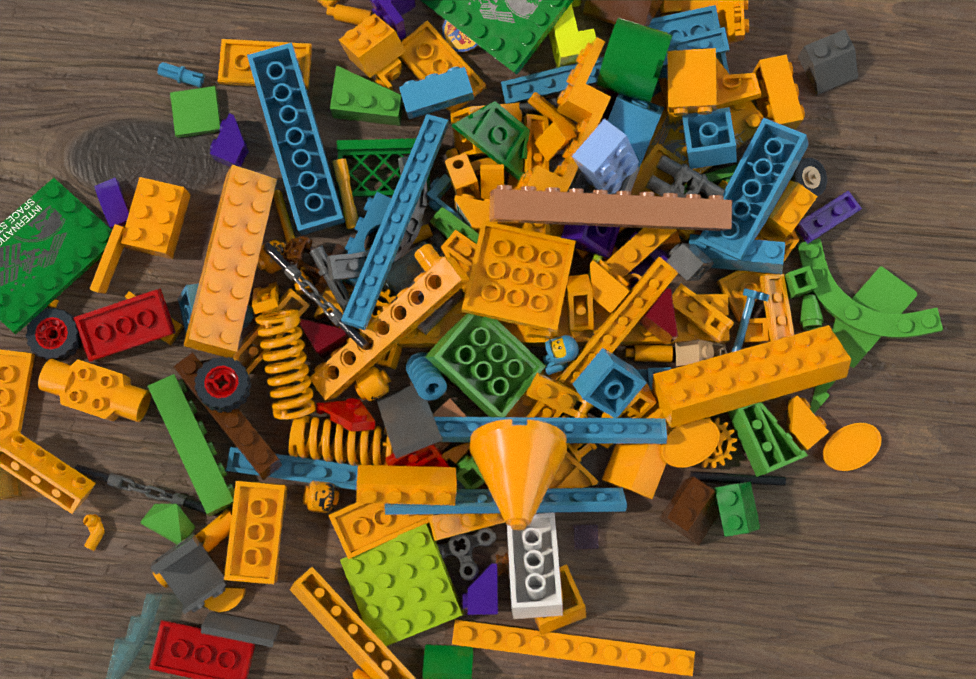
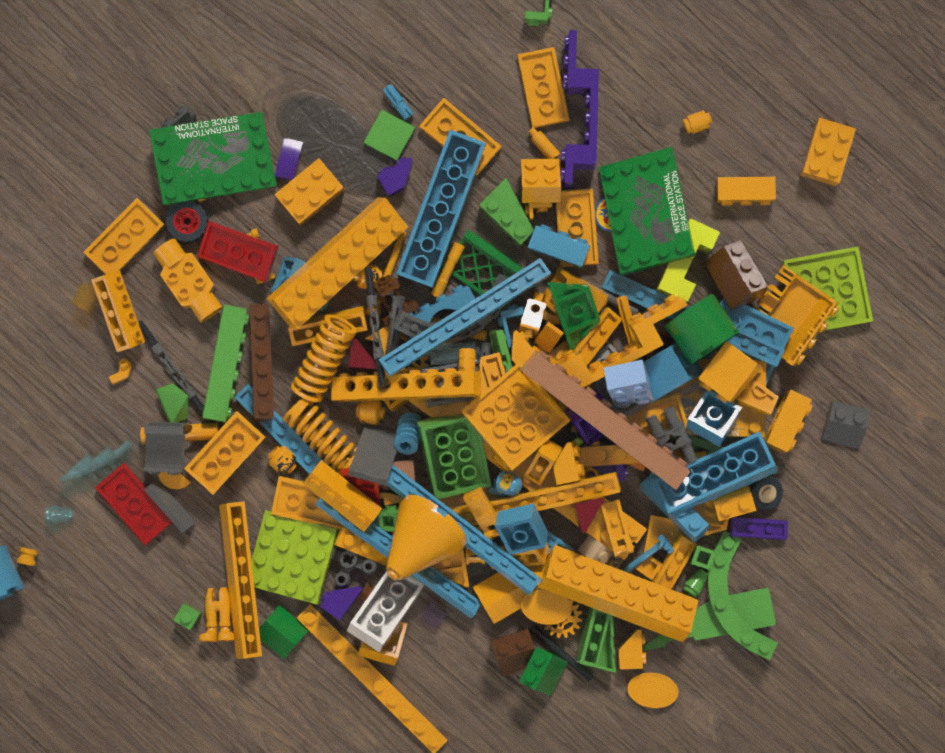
camera: 35 degrees right, 5 degrees up
(108, 261) = (258, 198): light orange tile -> none
(232, 394) = (276, 353): black wheel -> none
(265, 299) = (342, 304): light orange plate -> none
(348, 413) = (340, 420): red wing -> none
(555, 138) = (611, 341): light orange slope -> none
(650, 353) = (568, 529): light orange cylinder -> none
(689, 261) = (635, 490): dark grey brick -> none

